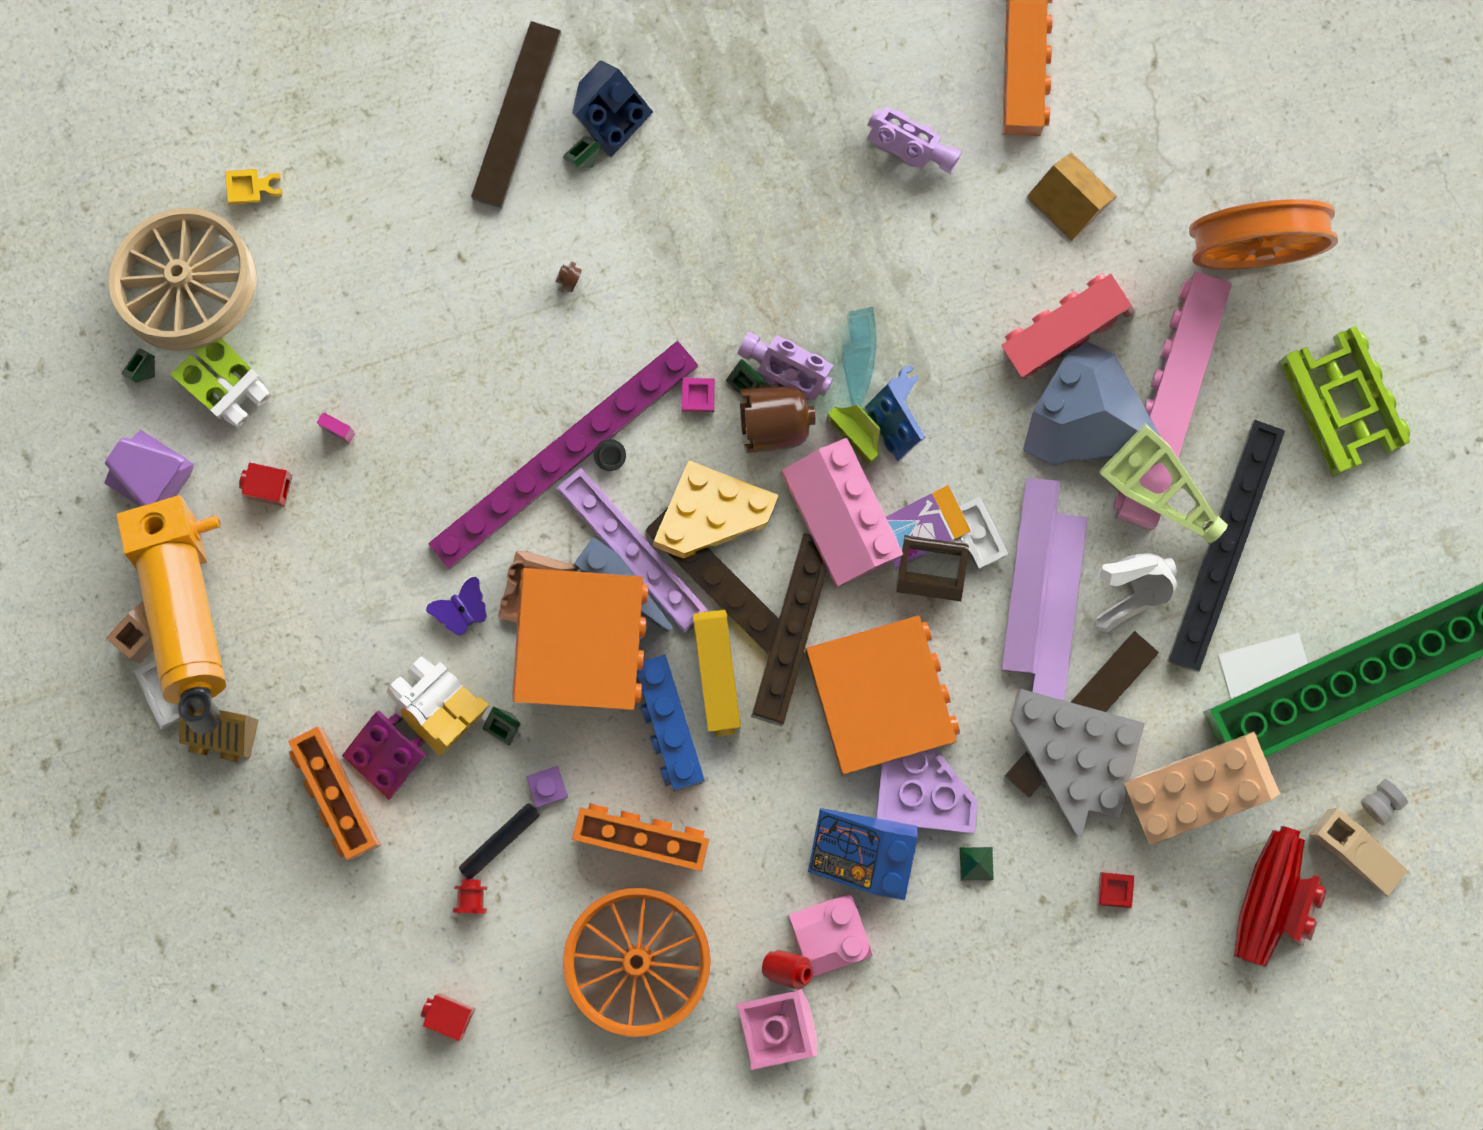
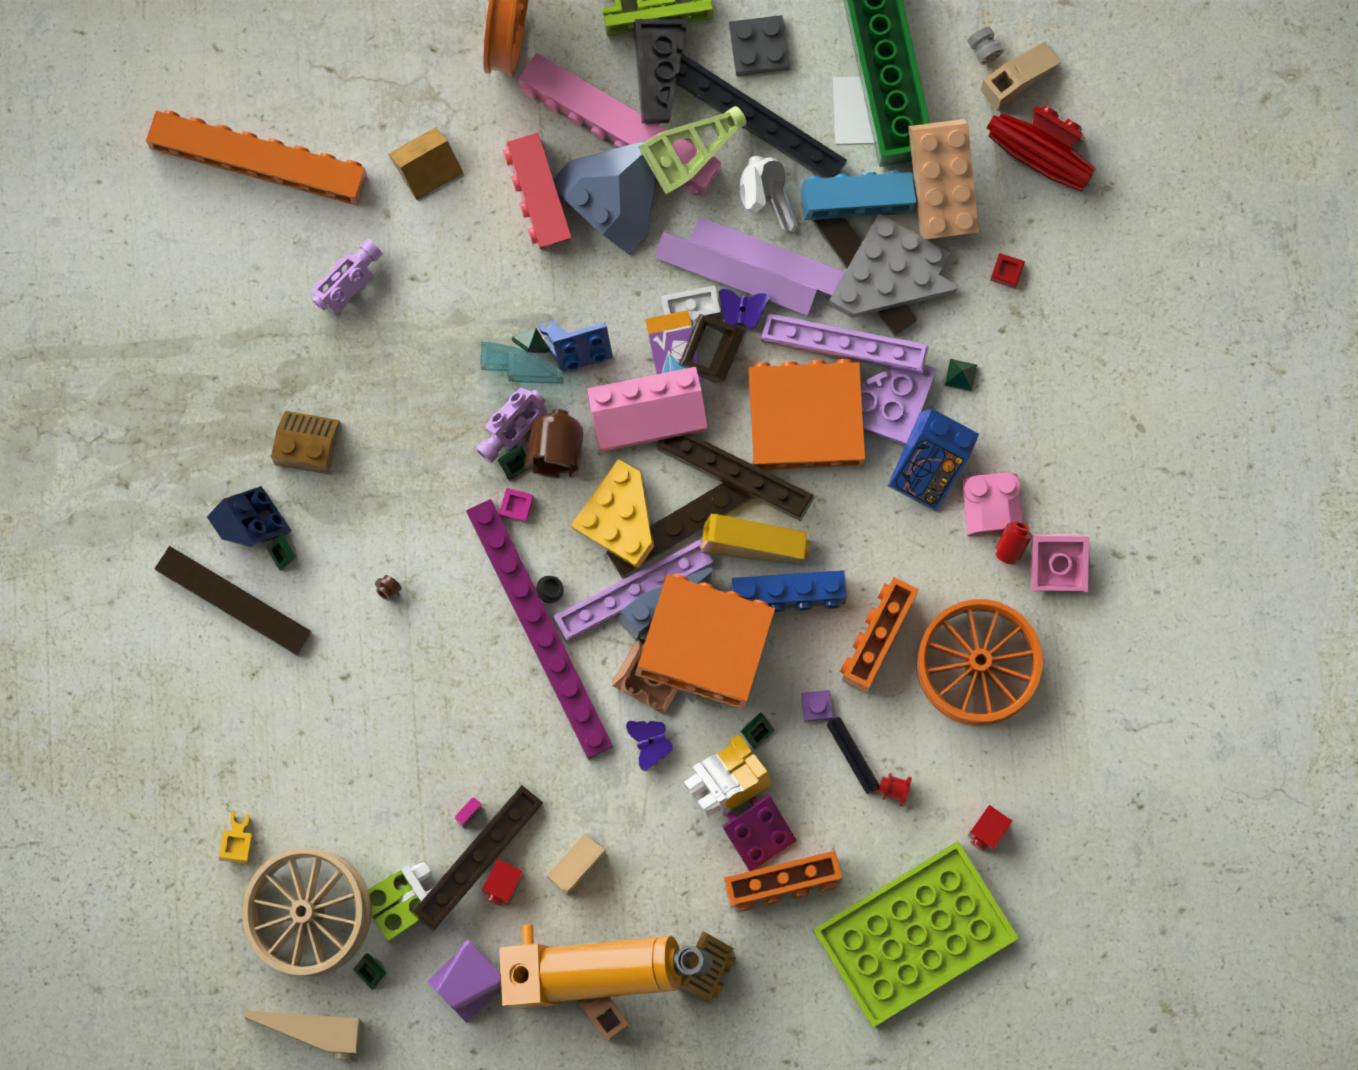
camera: 75 degrees left, 5 degrees down
(59, 328) = (326, 1033): none -> tan slope
(164, 712) = (660, 1012): white tile -> none
(284, 449) = (477, 858): none -> dark brown tile
(306, 560) = (576, 864): none -> tan panel
(309, 959) = (915, 934): none -> lime plate
(714, 144) = (305, 442): none -> pearl gold slope
(858, 429) = (579, 378): lime slope -> none
(887, 363) = (531, 341): none -> dark green slope
(978, 720) = (845, 343): none -> lavender tile
(990, 580) = (753, 307): none -> dark purple animal
(1158, 693) = (858, 195): none -> dark azure brick
(1257, 425) = (658, 60): none -> black wing
(1313, 538) = (759, 45): none -> dark grey plate

